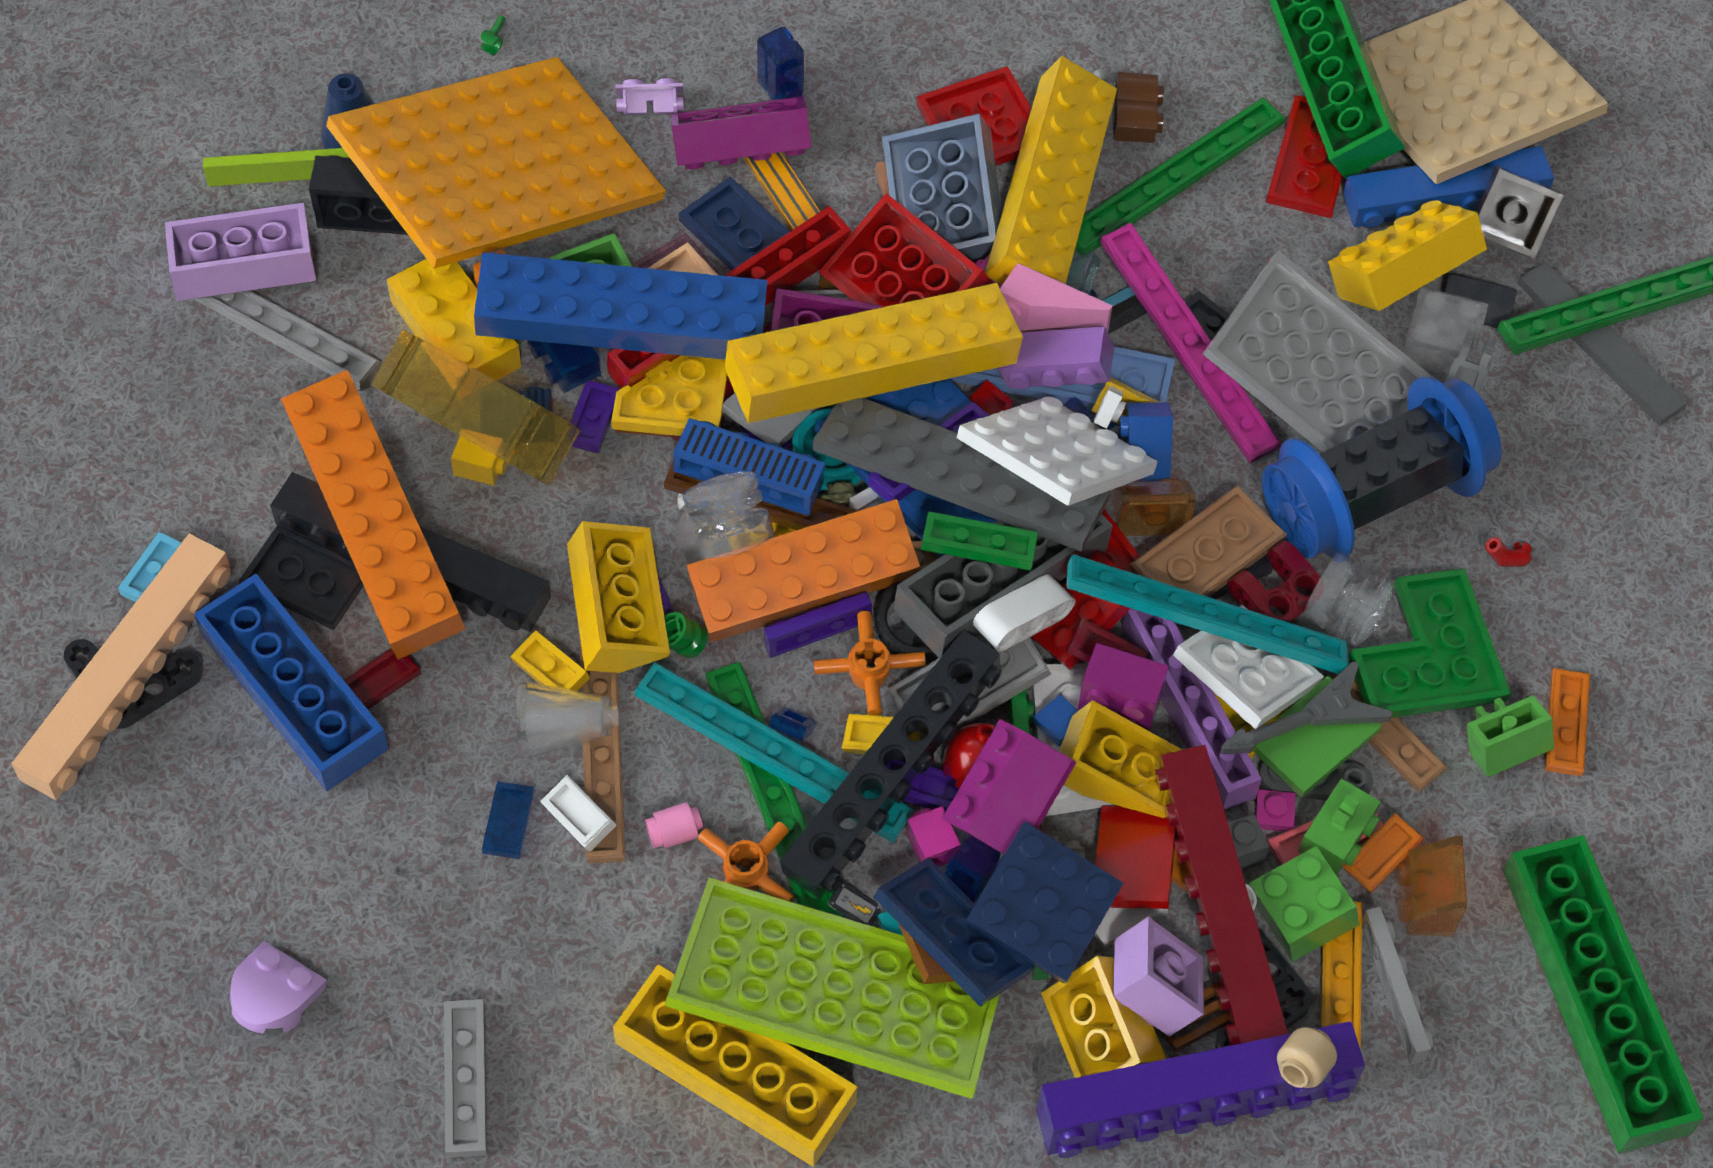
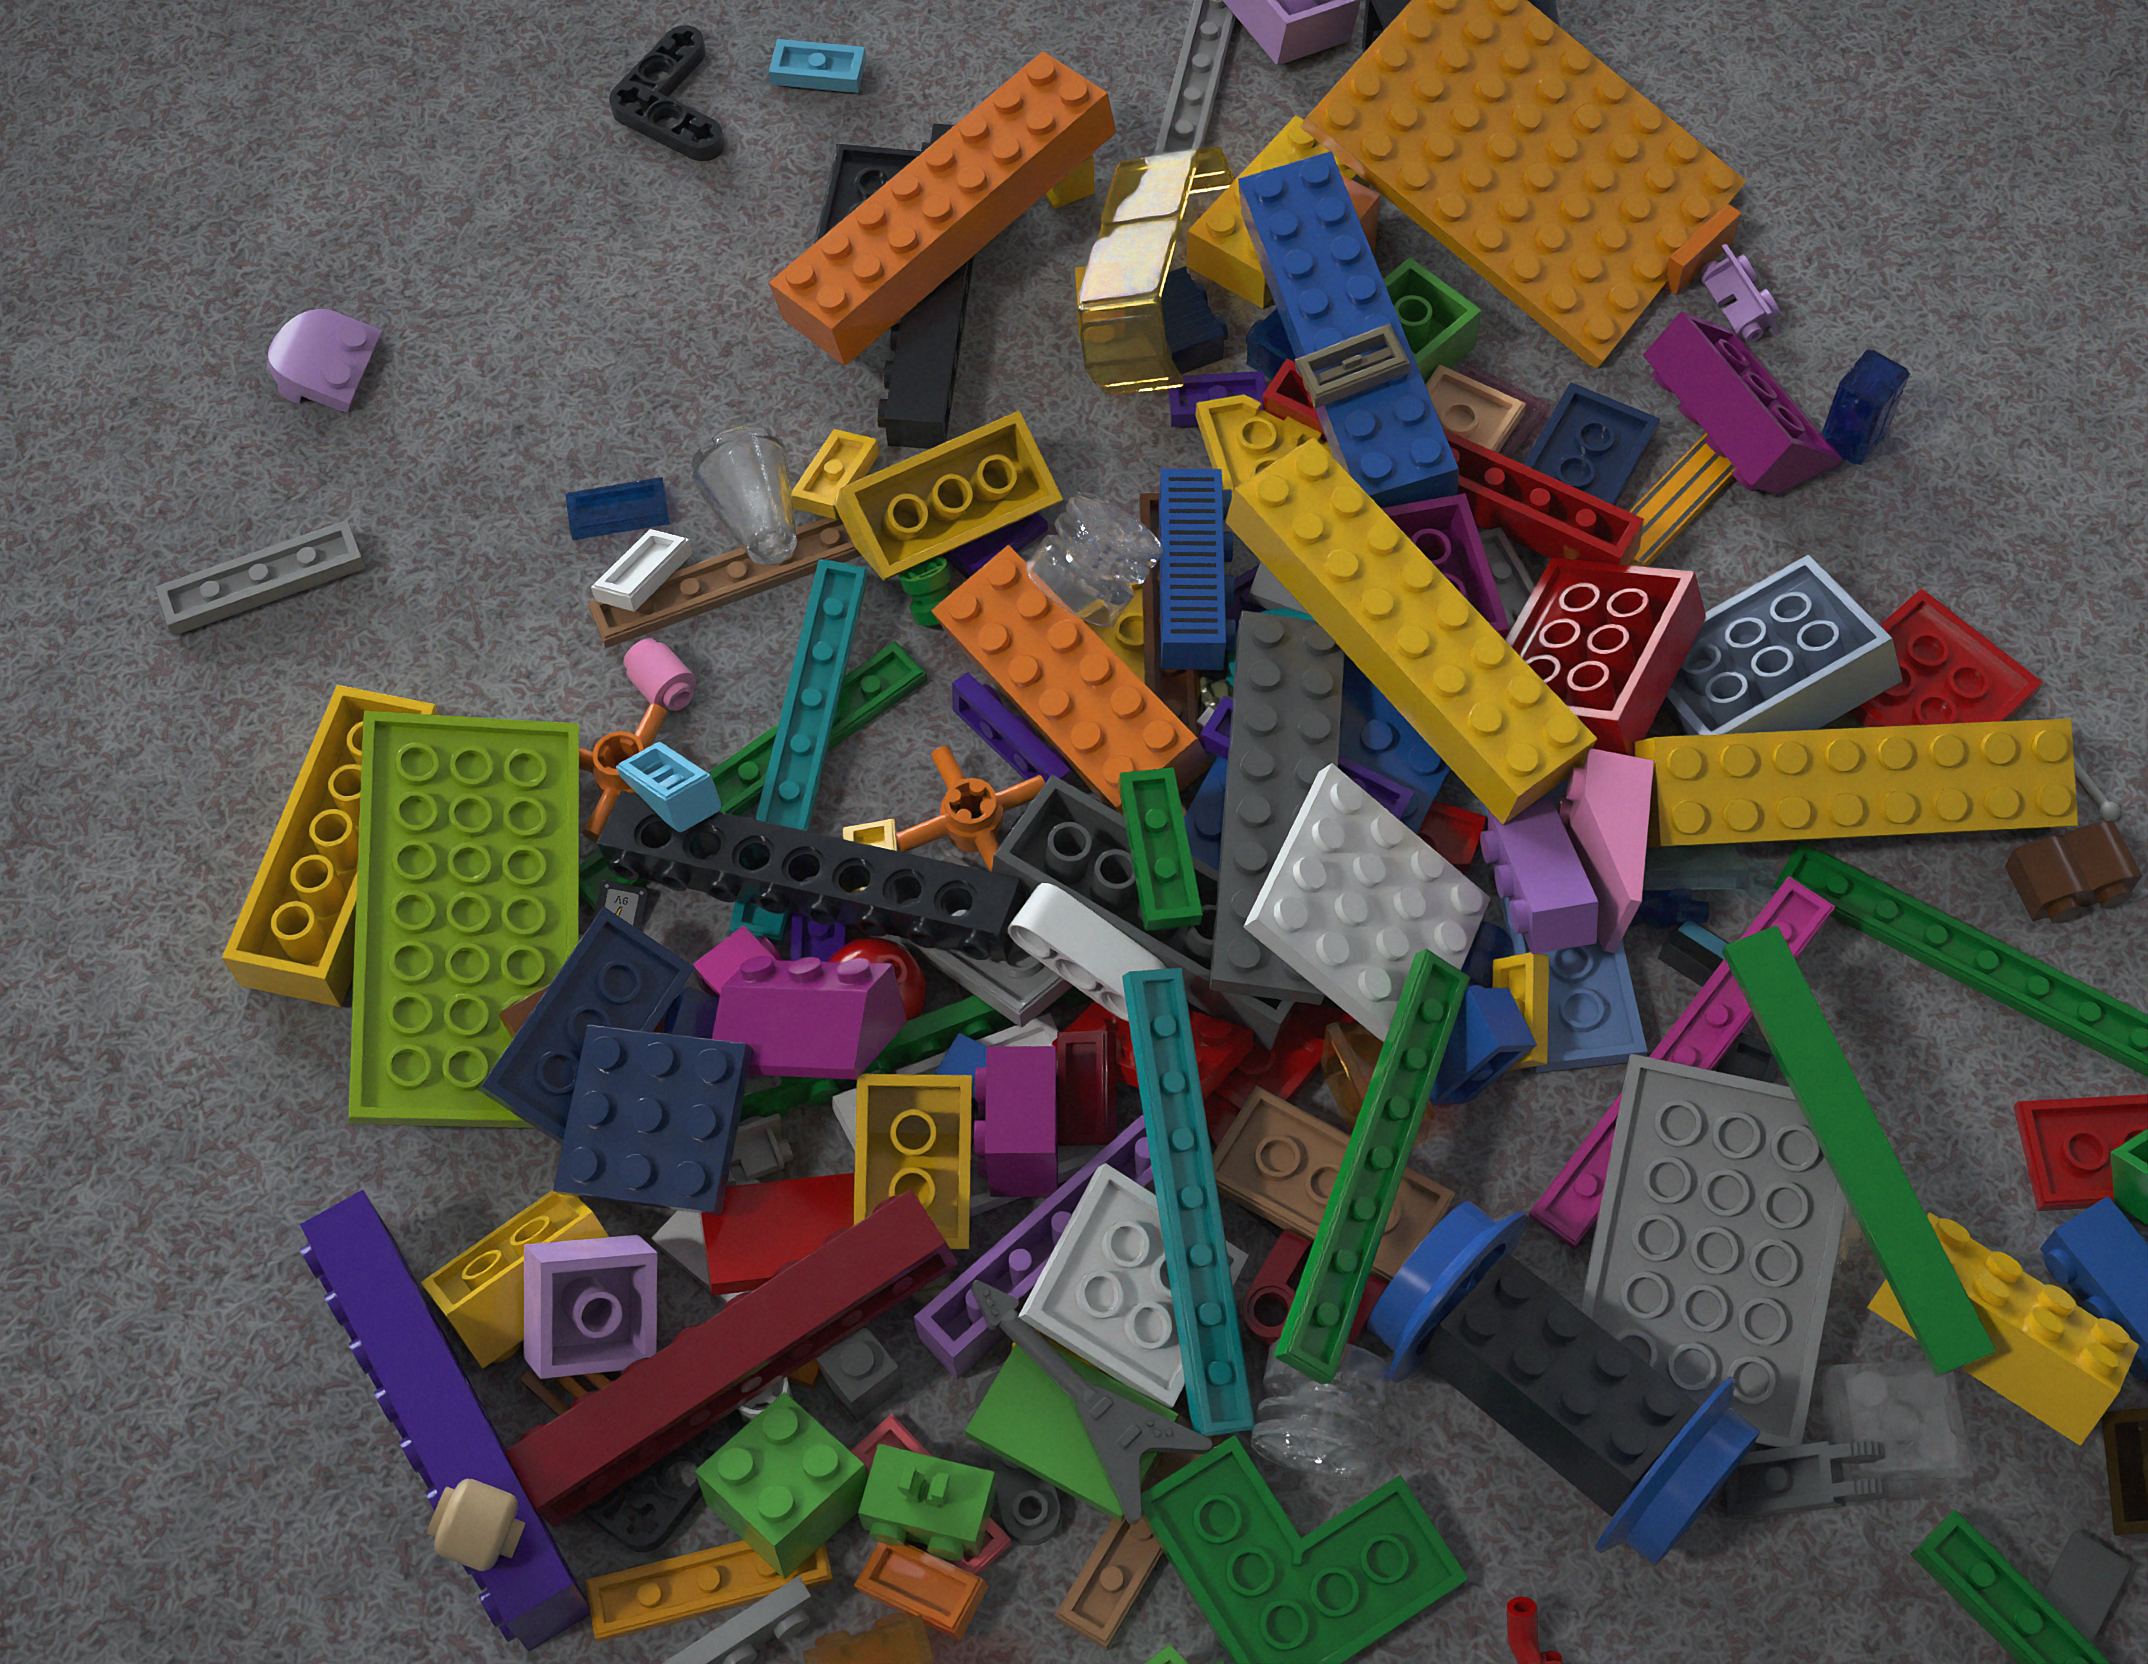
camera: 75 degrees right, 0 degrees up
(122, 668) = (671, 71): light nougat brick -> none
(291, 682) = (709, 230): blue brick -> none
(382, 678) = (756, 319): dark red tile -> none
(490, 39) = (1731, 108): green hand -> none
(604, 99) = (1701, 248): none -> orange tile
(668, 331) = (1356, 372): none -> dark tan tile
(792, 723) = (852, 758): clear blue tile -> none
(810, 829) = (677, 791): none -> medium azure slope
(1110, 408) = (1493, 966): white plate -> none
(1228, 504) = (1372, 1169): none -> green tile
(1275, 810) = (943, 1411): dark pink plate -> none
(1303, 264) = (1858, 1153): none -> green tile
(1498, 297) = (2000, 1494): black slope -> none

